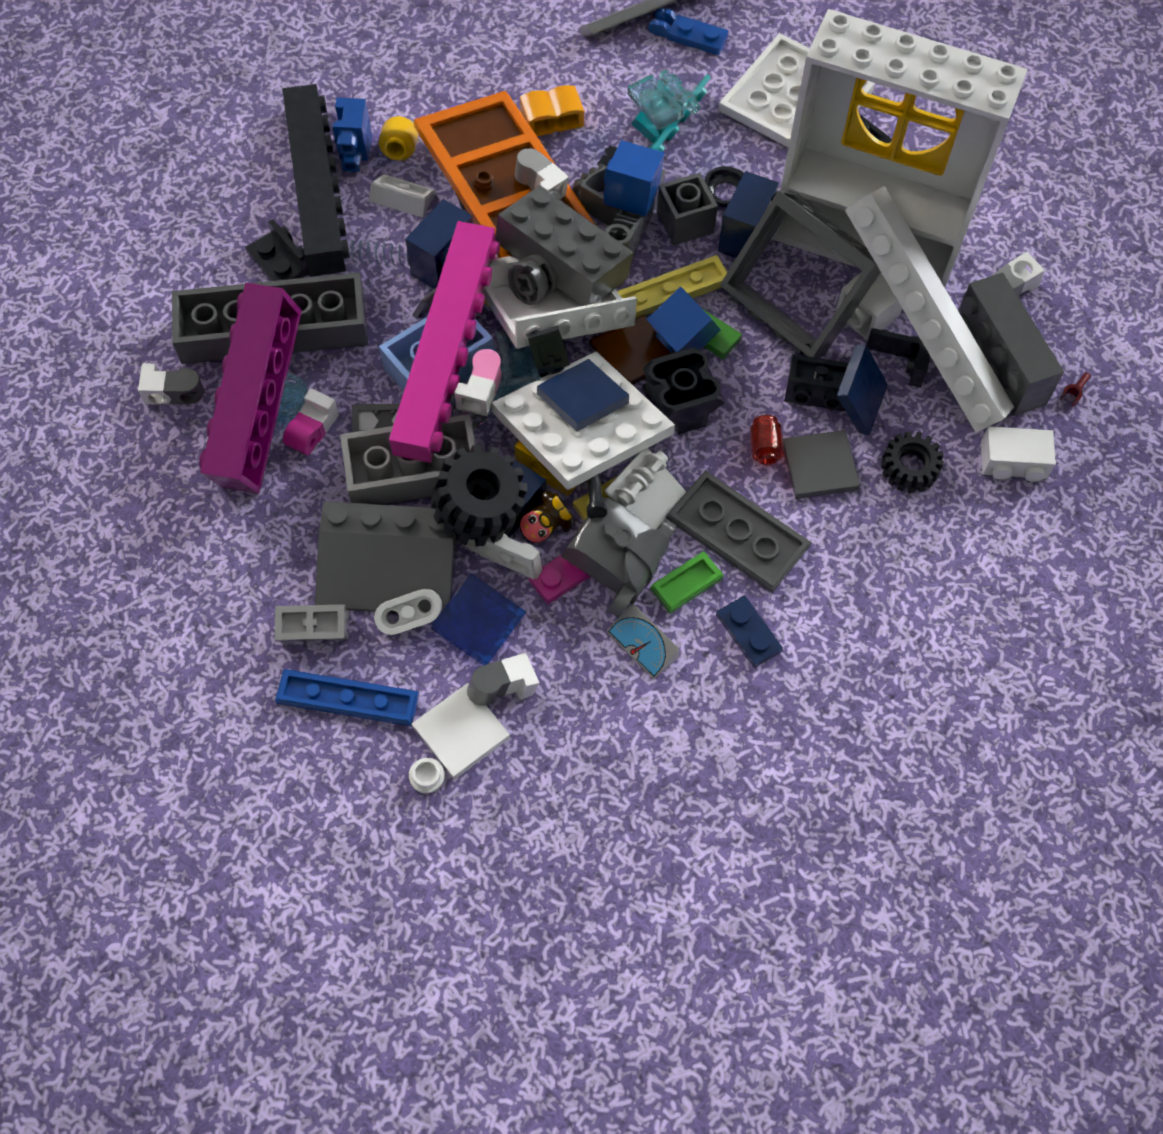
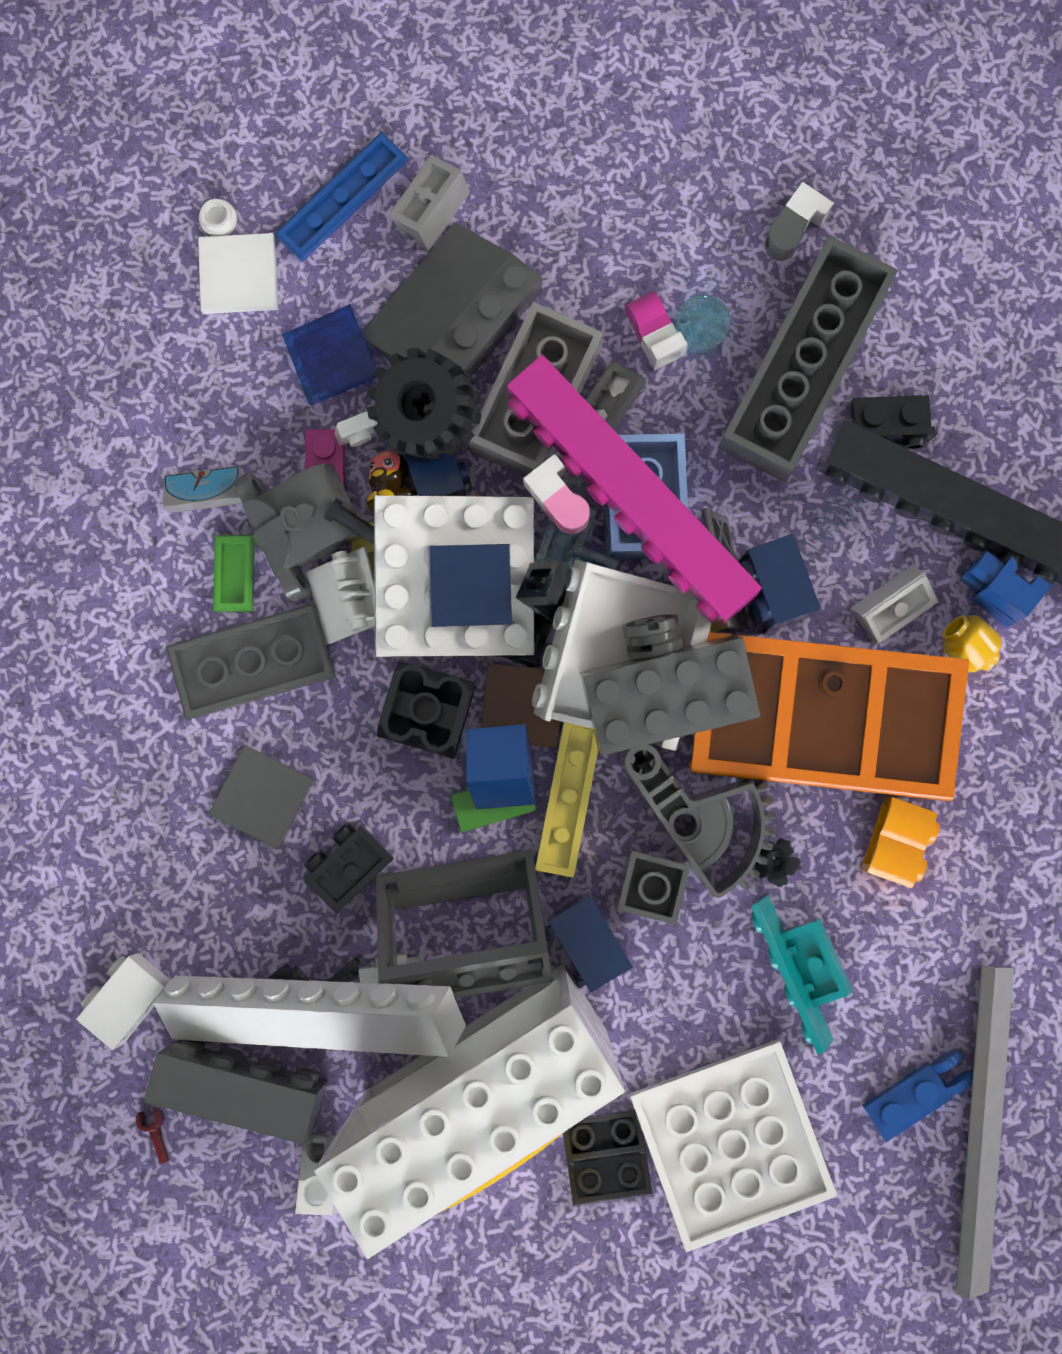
camera: 130 degrees right, 20 degrees up
(250, 388) = (710, 271): magenta brick -> none
(409, 611) = (379, 298): white plate -> none
(501, 679) = (253, 330): leg -> none
(536, 170) = (804, 743): leg -> none
(633, 178) = (709, 834): blue head -> none
(657, 103) = (814, 954): clear light blue plate -> none
(721, 175) = (683, 968): black piece -> none
(749, 631) = (144, 593): dark blue plate -> none
(766, 440) = (319, 758): clear red brick -> none
(862, 389) = (297, 893): dark blue tile -> none
(917, 446) = (171, 886): black tyre -> none

